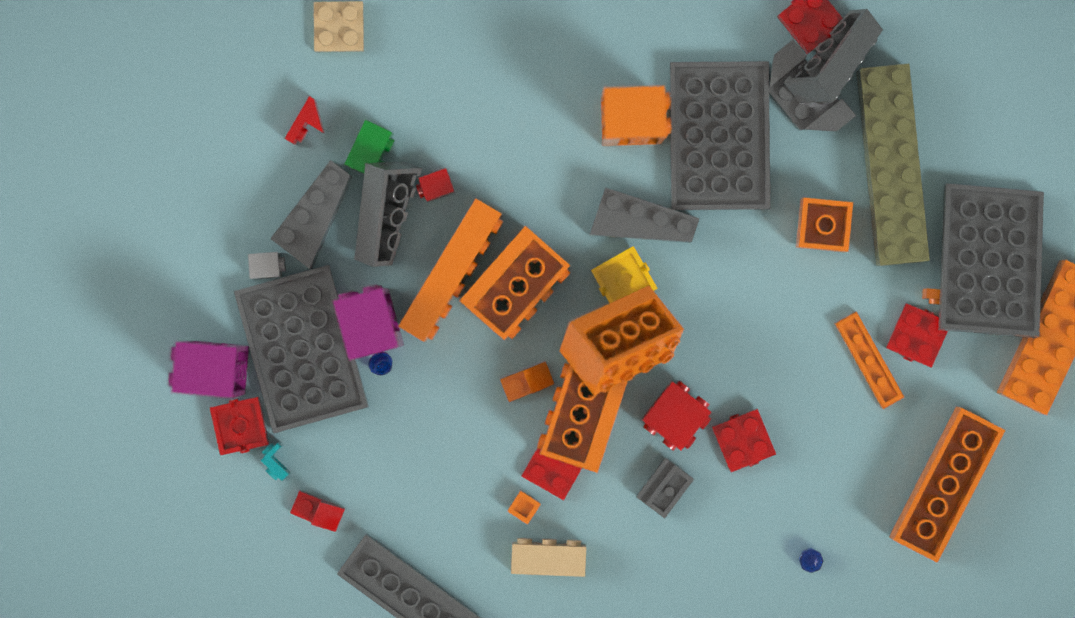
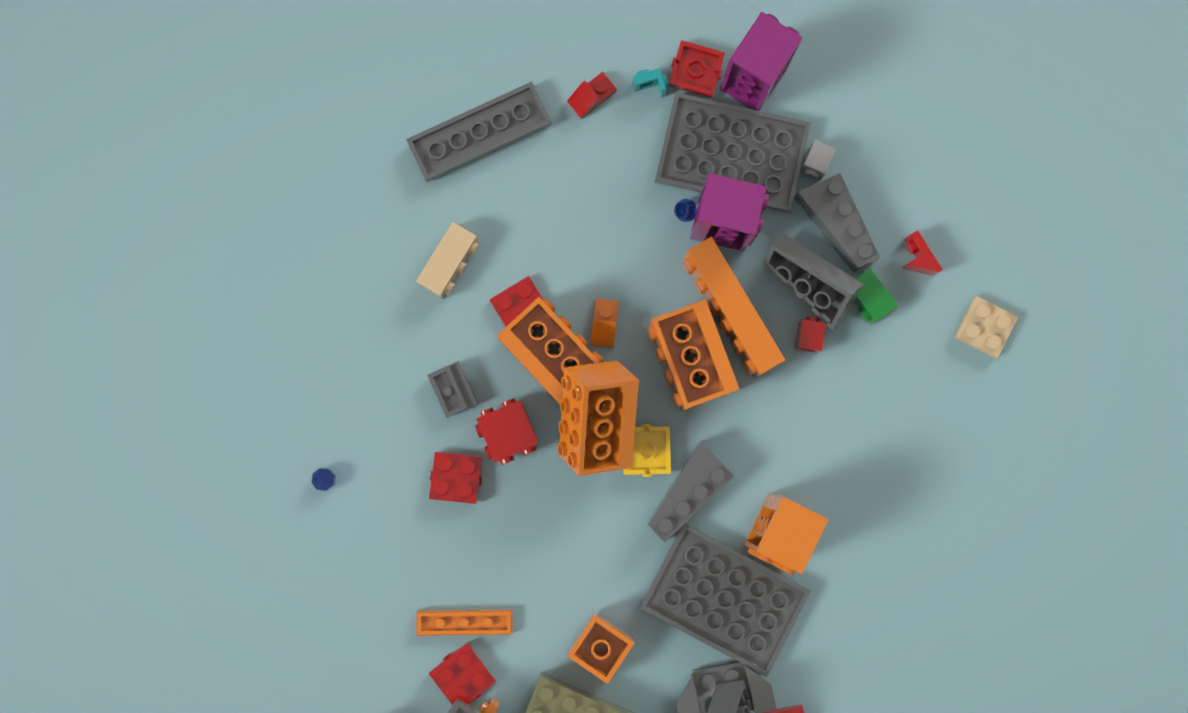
camera: 115 degrees right, 5 degrees down
(524, 507) = (501, 263): orange plate -> none
(947, 483) = (321, 632): orange brick -> none

